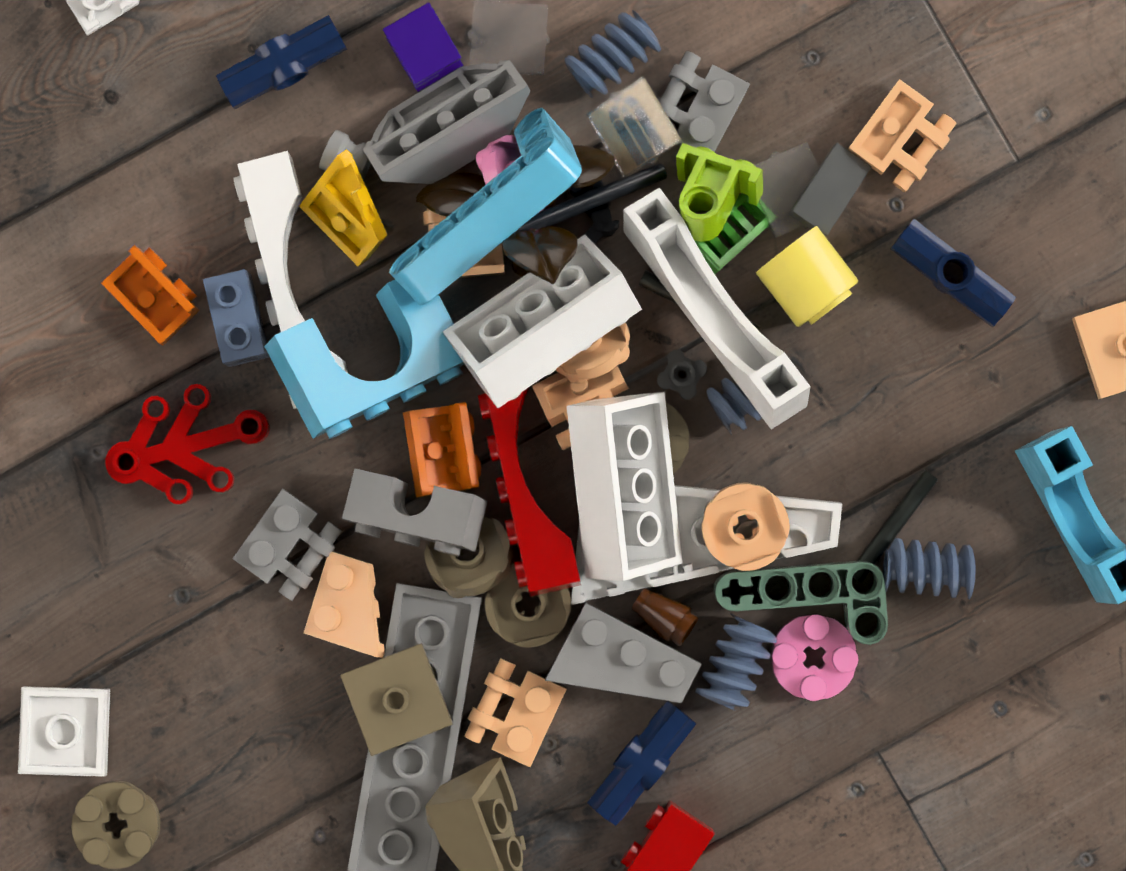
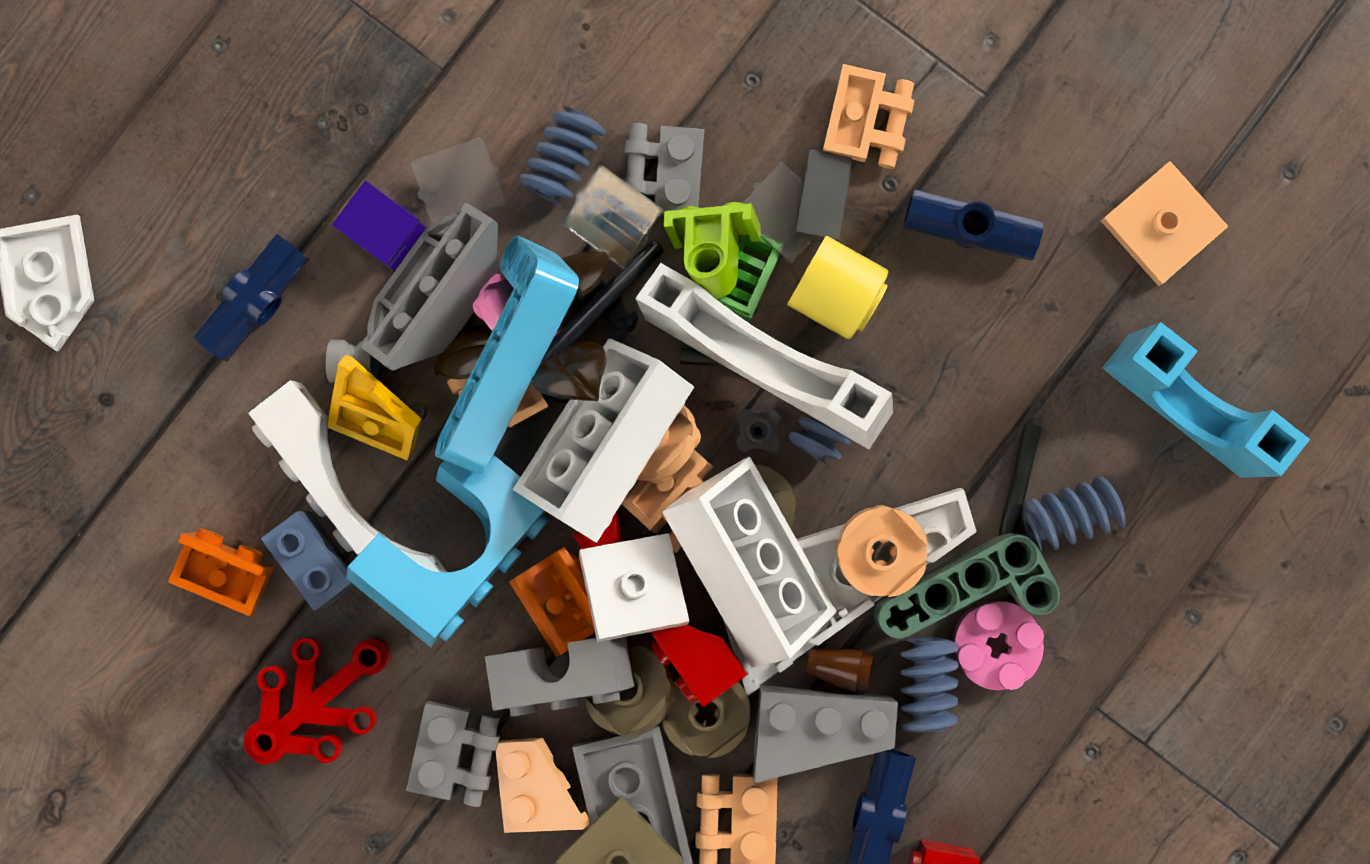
camera: 20 degrees left, 0 degrees up
(513, 461) = (633, 587): none -> white plate

